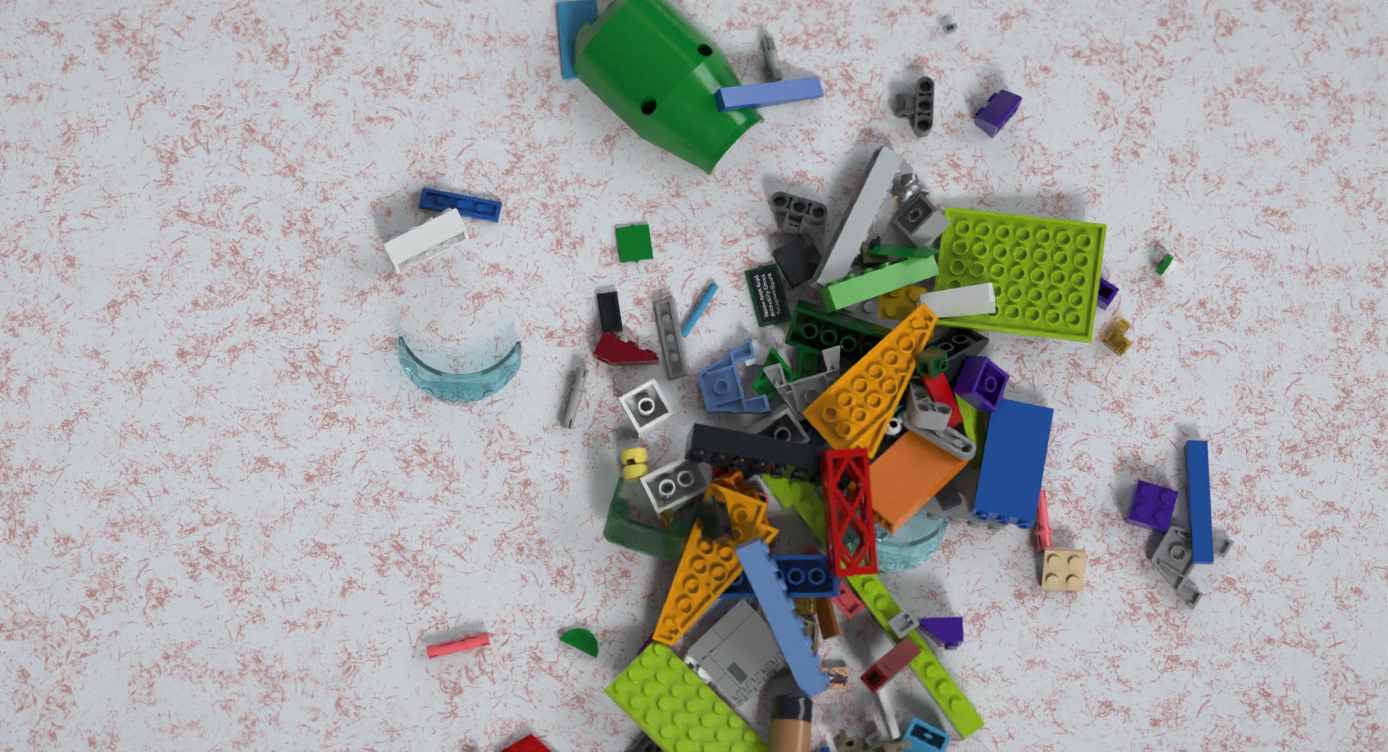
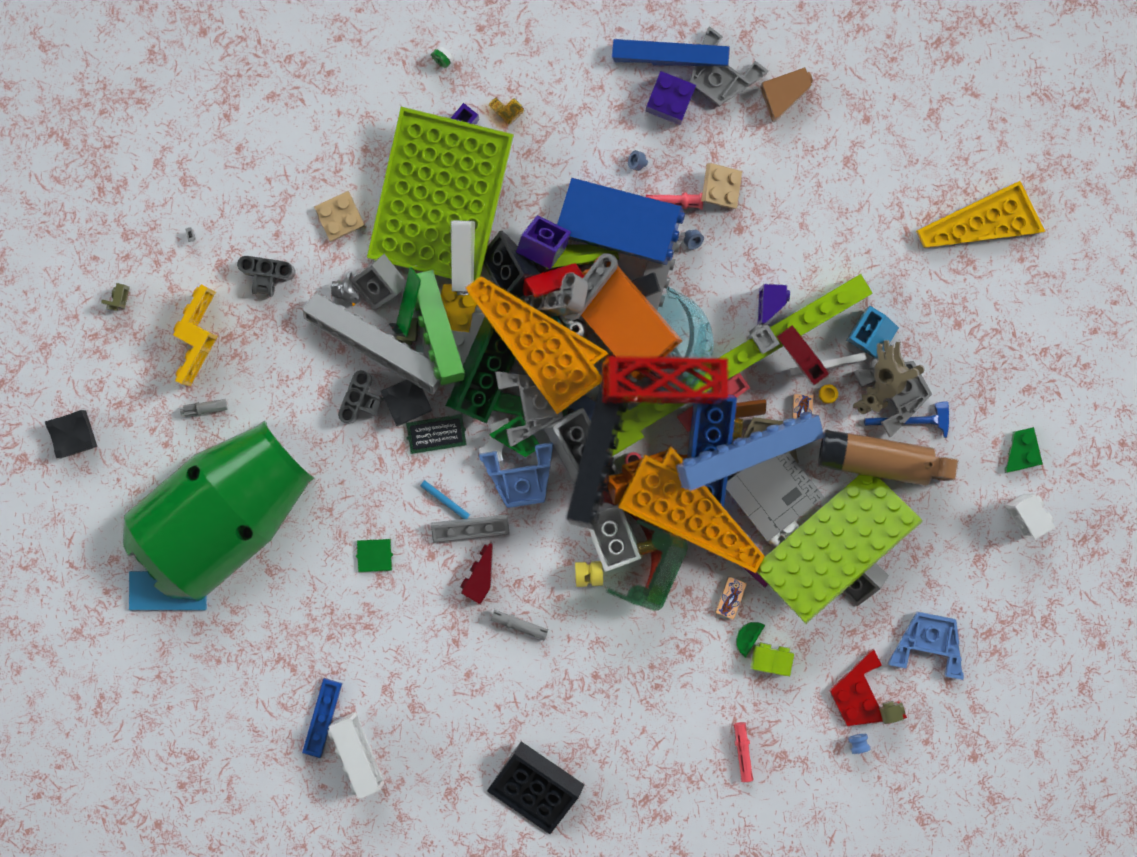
camera: 80 degrees left, 10 degrees up
(404, 429) = (536, 788): none -> black slope
(460, 387) = (500, 729): clear light blue windscreen -> none
(559, 667) = (772, 660): none -> lime brick
(610, 312) = (439, 584): black tile -> none
(622, 618) = (731, 598): none -> tile
(646, 407) = (536, 559): white brick -> none
(715, 520) = (659, 505): black slope -> none
(767, 94) = (242, 416): slope -> none
(846, 40) = (191, 333): none -> yellow bracket
(851, 705) = (828, 394): none -> yellow tile
(932, 362) = (523, 286): dark green brick -> none
(986, 176) = (339, 216): none -> tan plate
(997, 112) = (276, 196): dark purple slope -> none
(1002, 544) = (693, 239): none -> sand blue tile
(1080, 478) = (637, 160): none -> sand blue tile
(1173, 629) = (785, 91): none -> medium nougat slope

